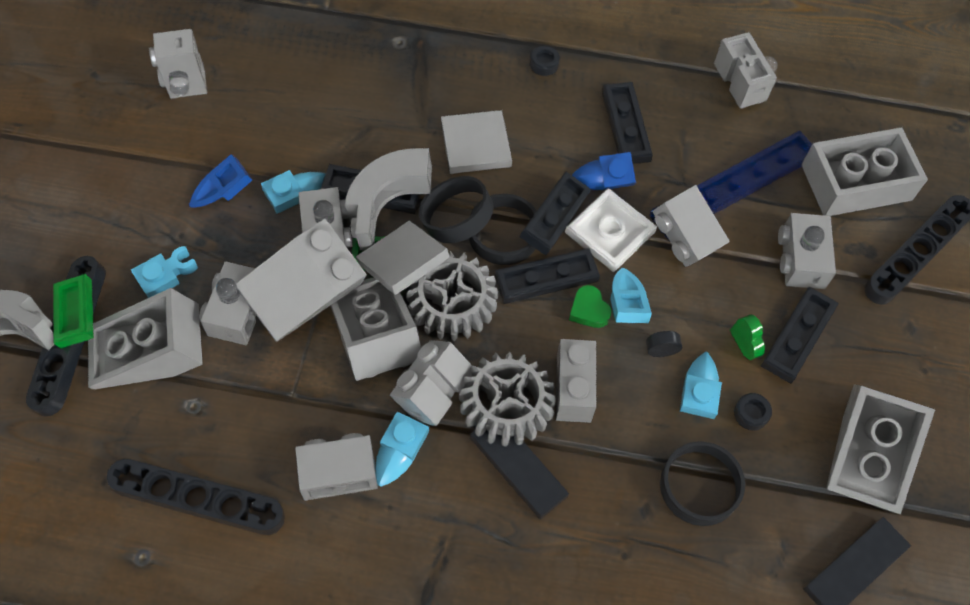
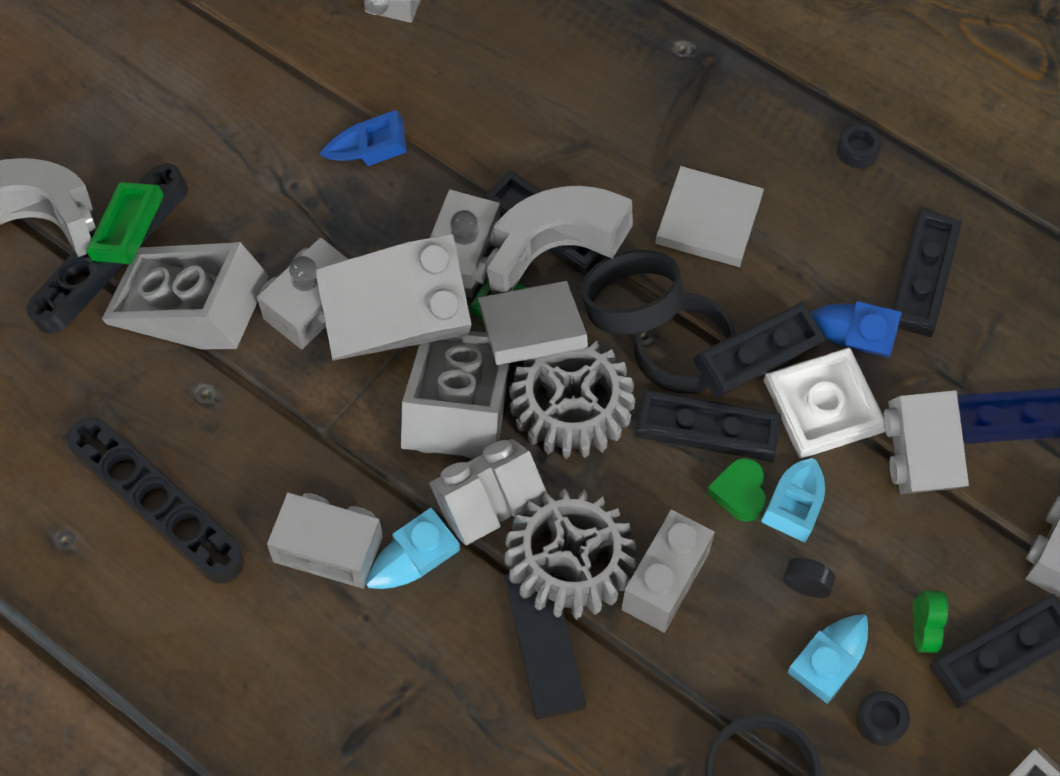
camera: 30 degrees right, 0 degrees up
(160, 274) = (245, 220): medium azure plate -> none
(284, 188) = (437, 176): medium azure plate -> none

